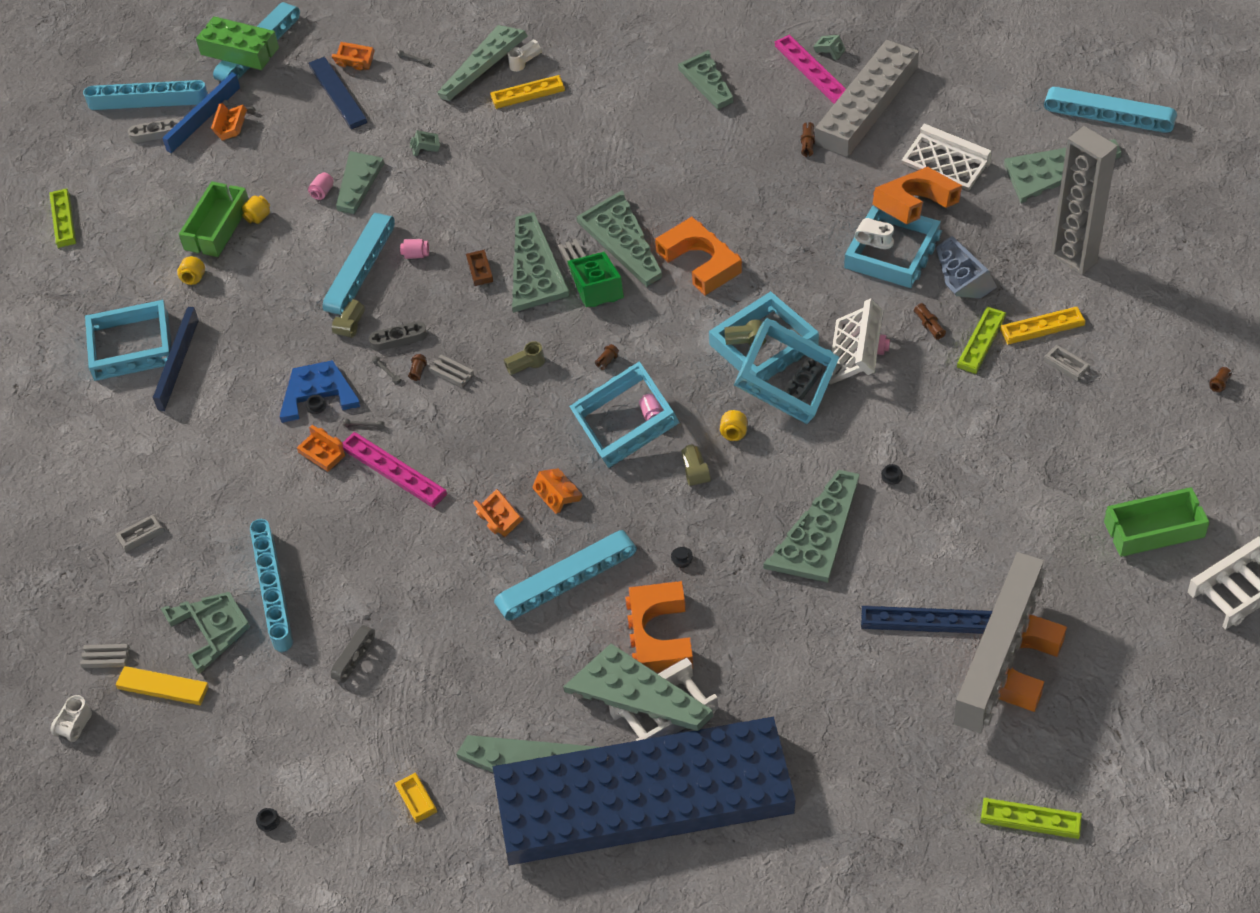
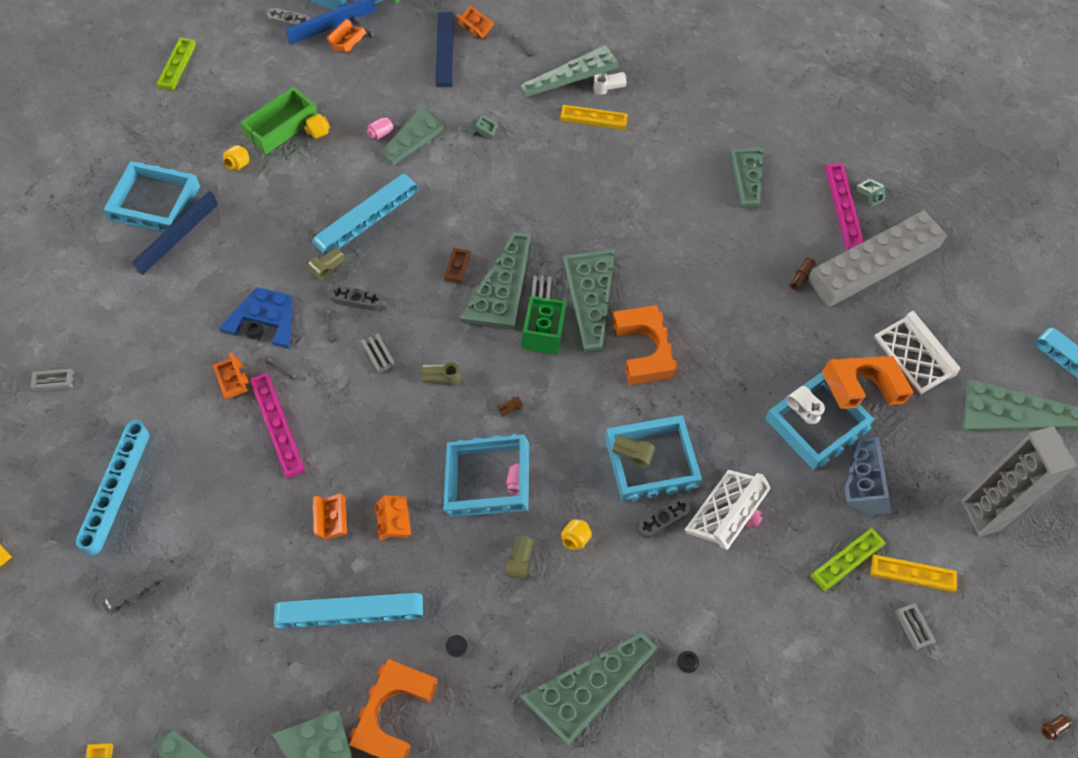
camera: 20 degrees right, 10 degrees up
(217, 619) = (53, 502): sand green wing -> none
(414, 248) = (417, 222): bright pink brick -> none
(418, 363) = (355, 332): reddish brown pin -> none
(773, 395) = (622, 526): medium azure window -> none
(935, 328) = (810, 515): reddish brown pin -> none

